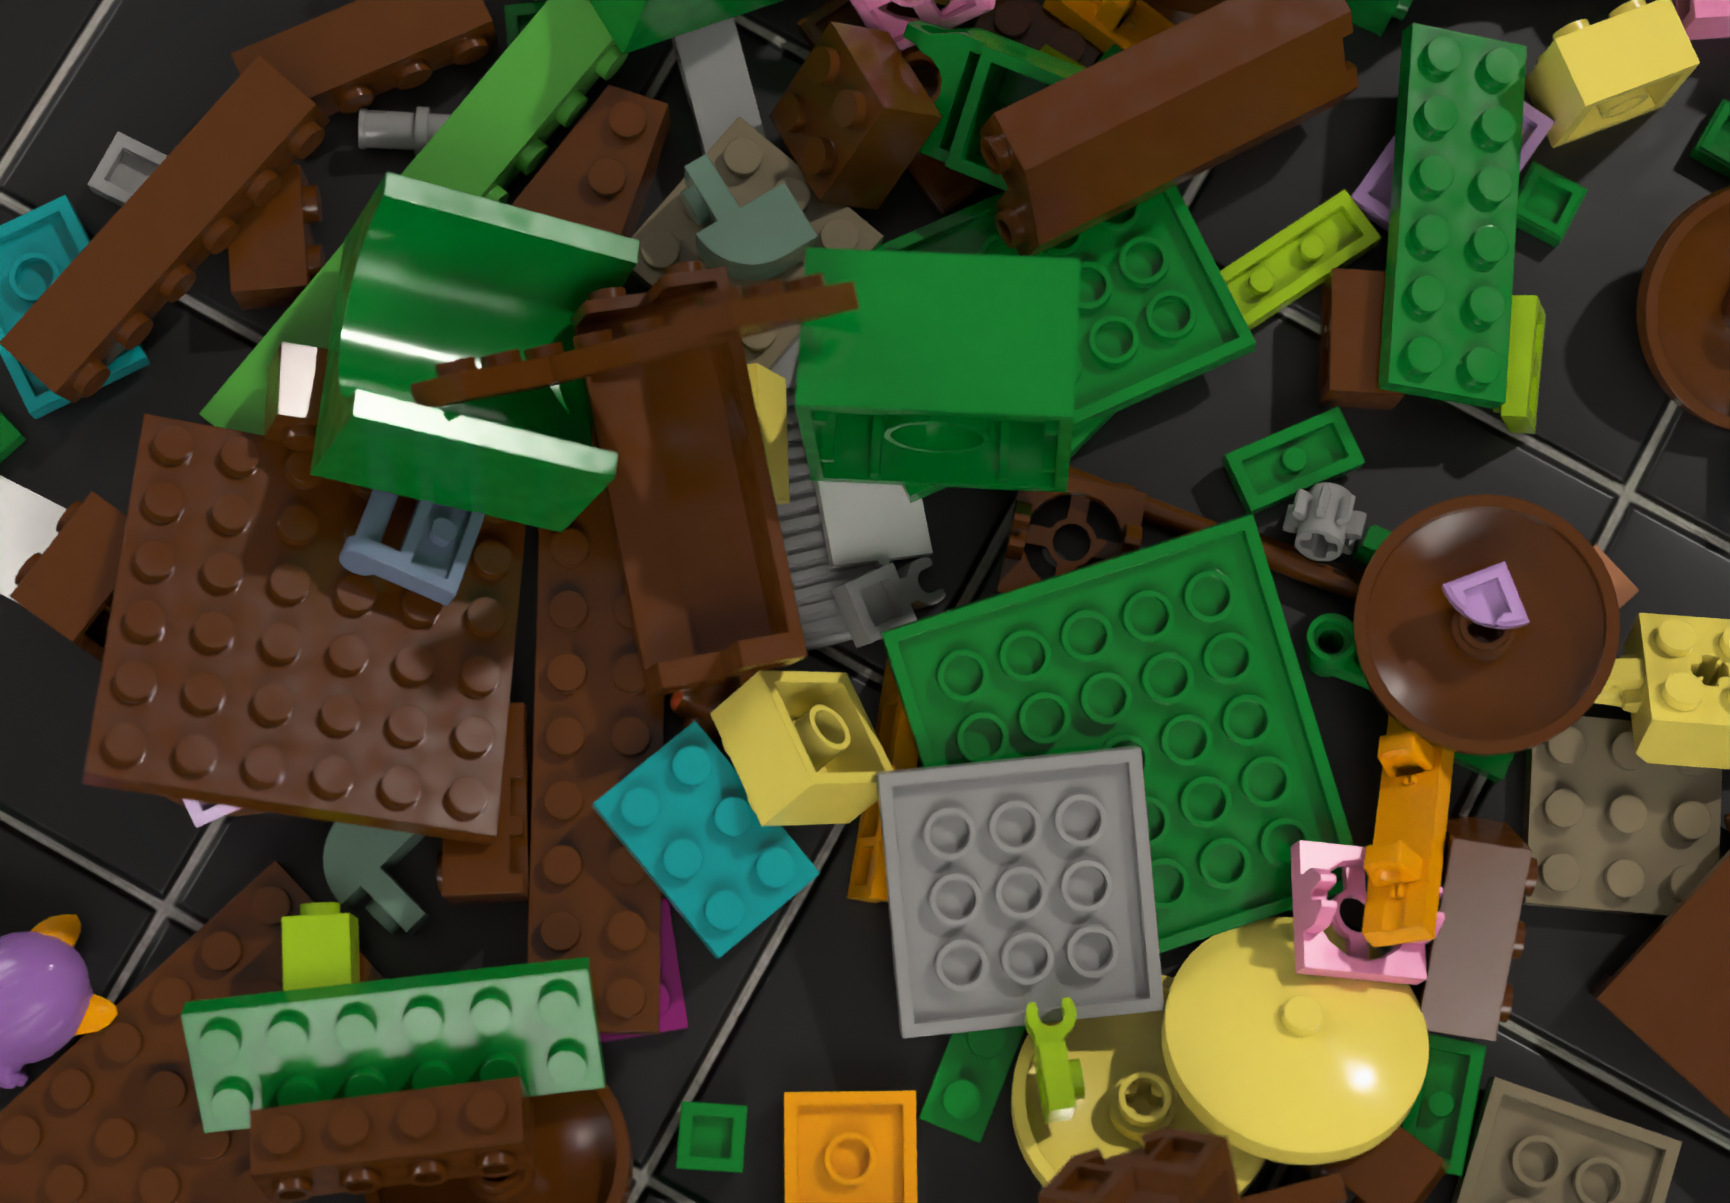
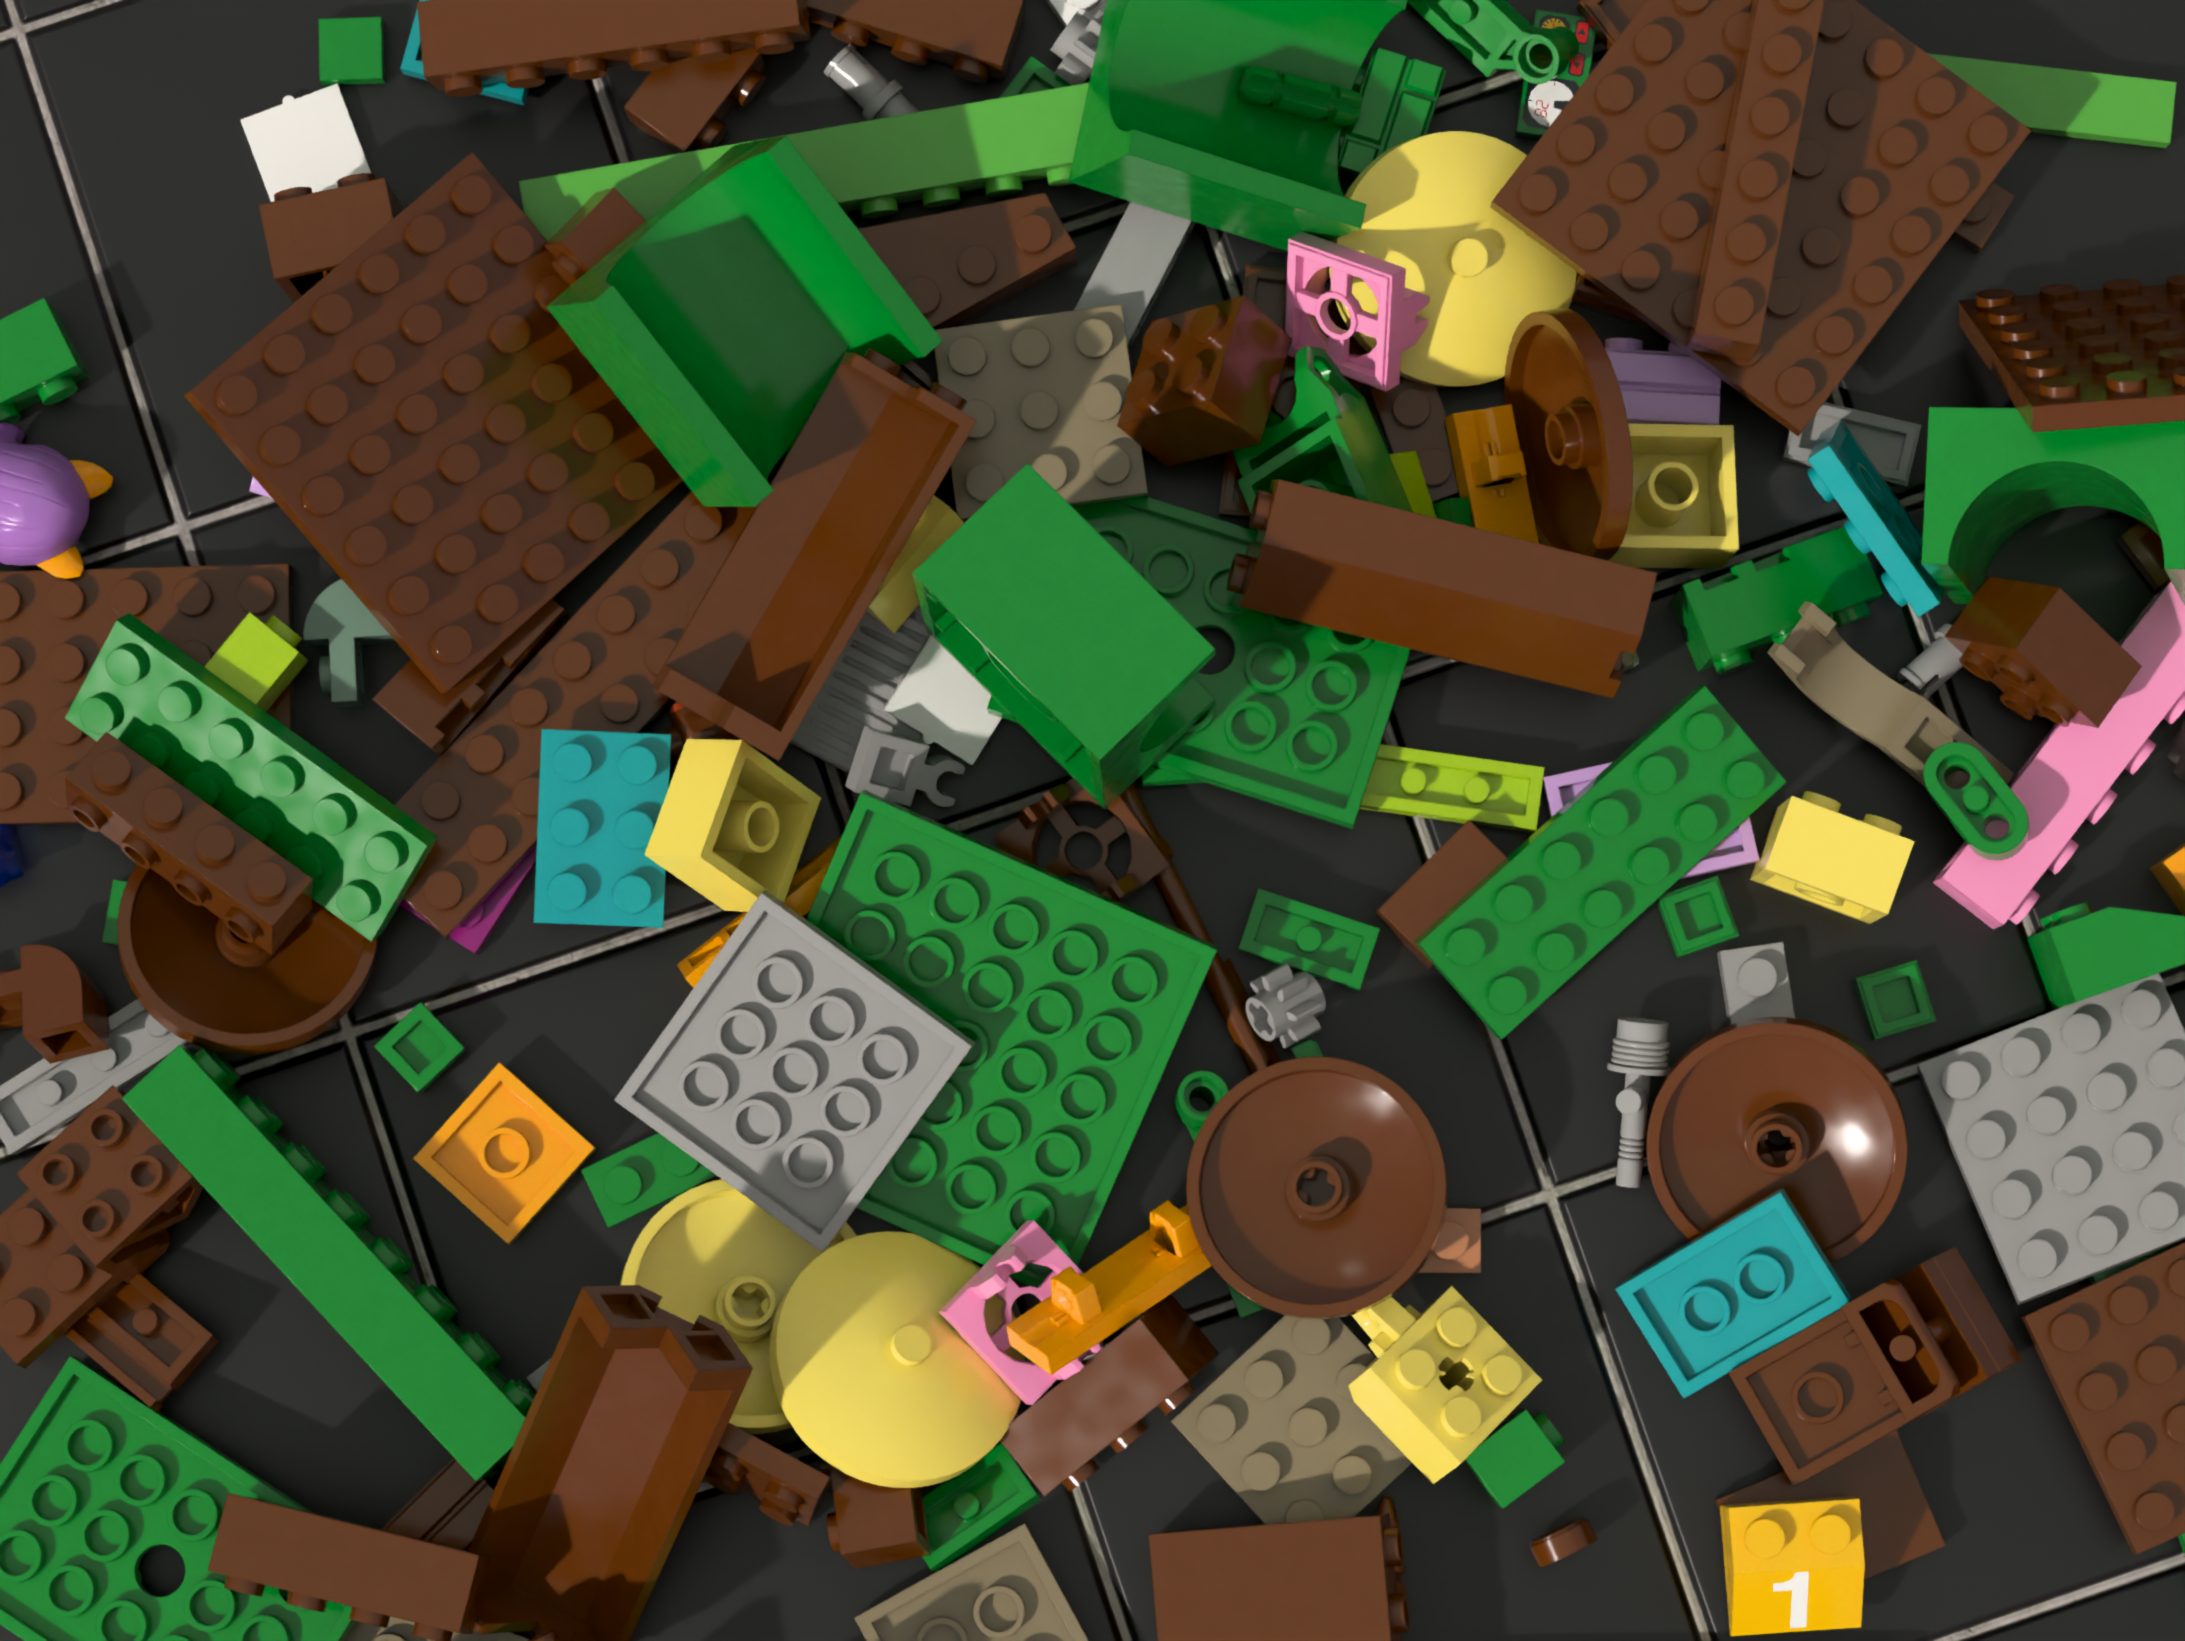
camera: 55 degrees right, 5 degrees up
(431, 551) = (586, 440): sand blue plate -> none
(717, 319) = (880, 457): reddish brown plate -> none
(748, 240) = (1034, 412): sand green brick -> none
(1058, 1078) = (695, 1228): lime plate -> none
(1488, 598) = (1331, 1168): lavender tile -> none
(1524, 364) = (1554, 1023): lime plate -> none
(1602, 331) = (1639, 1052): none -> light grey piece
(1630, 216) = (1755, 982): none -> light grey plate

